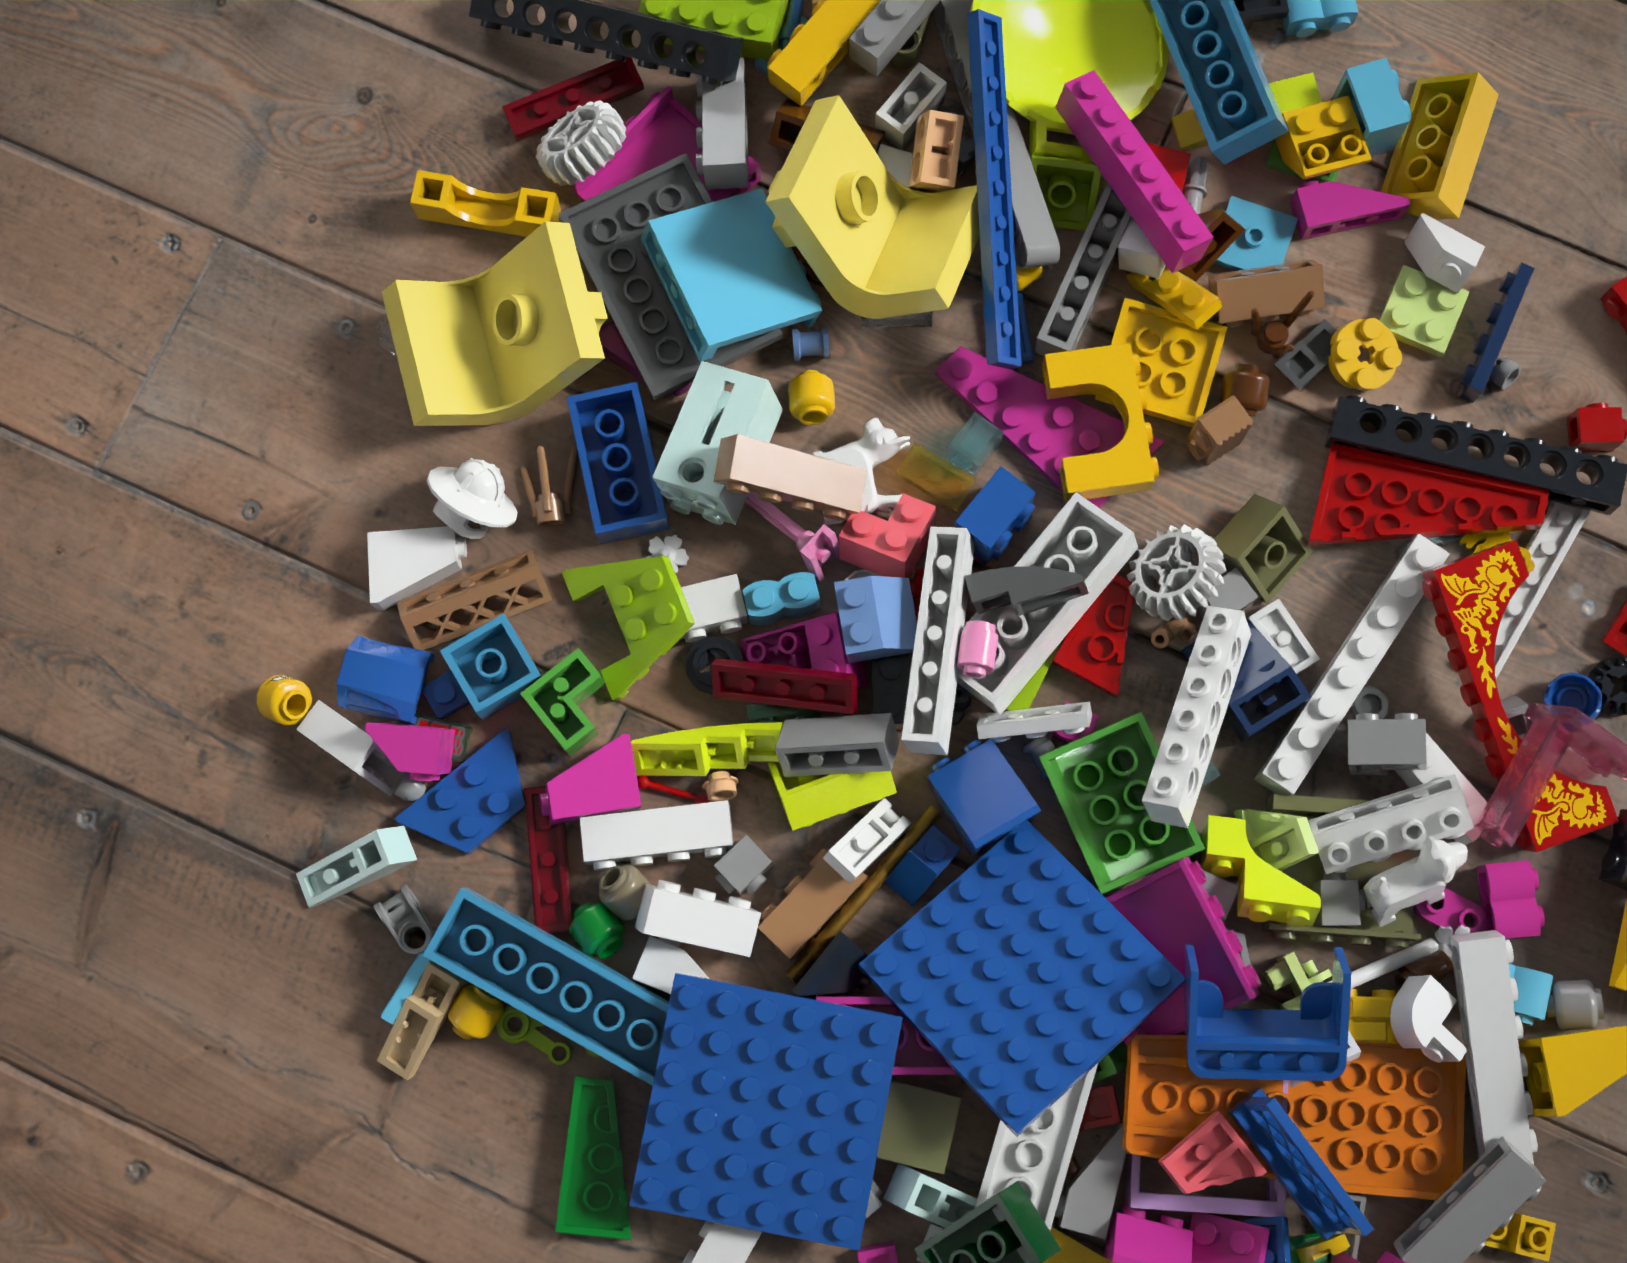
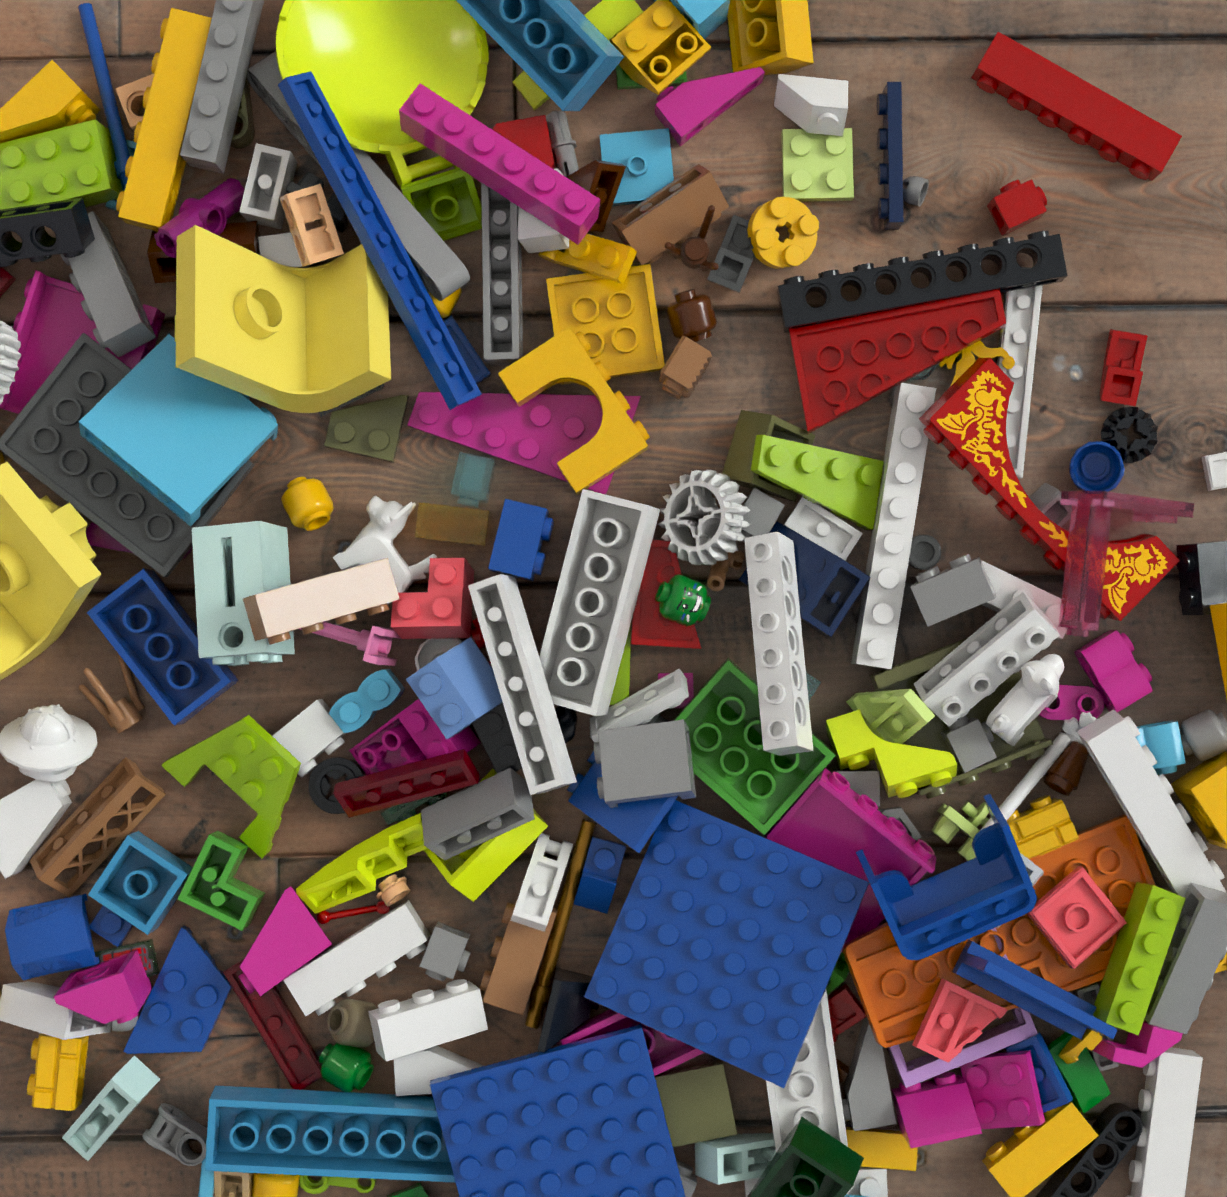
camera: 30 degrees left, 10 degrees up
(327, 805) = (58, 1072): none -> yellow brick
(671, 549) = (247, 704): white plant -> none
(810, 343) = (283, 453): medium blue bush -> none
(861, 101) = (208, 213): none -> magenta piece
(898, 358) = (368, 428): none -> olive wing
(977, 649) = (560, 676): bright pink brick -> none
(1021, 766) = (645, 762): none -> light grey panel
(1024, 588) = (574, 604): dark grey slope -> none
(1122, 639) = (683, 600): none -> green head
(1306, 586) = (823, 476): none -> lime wing
(1373, 1117) = (1076, 917): none -> coral plate
(1418, 1019) = (1078, 814): white brick -> none
(1421, 1183) = (1138, 957): none -> lime brick

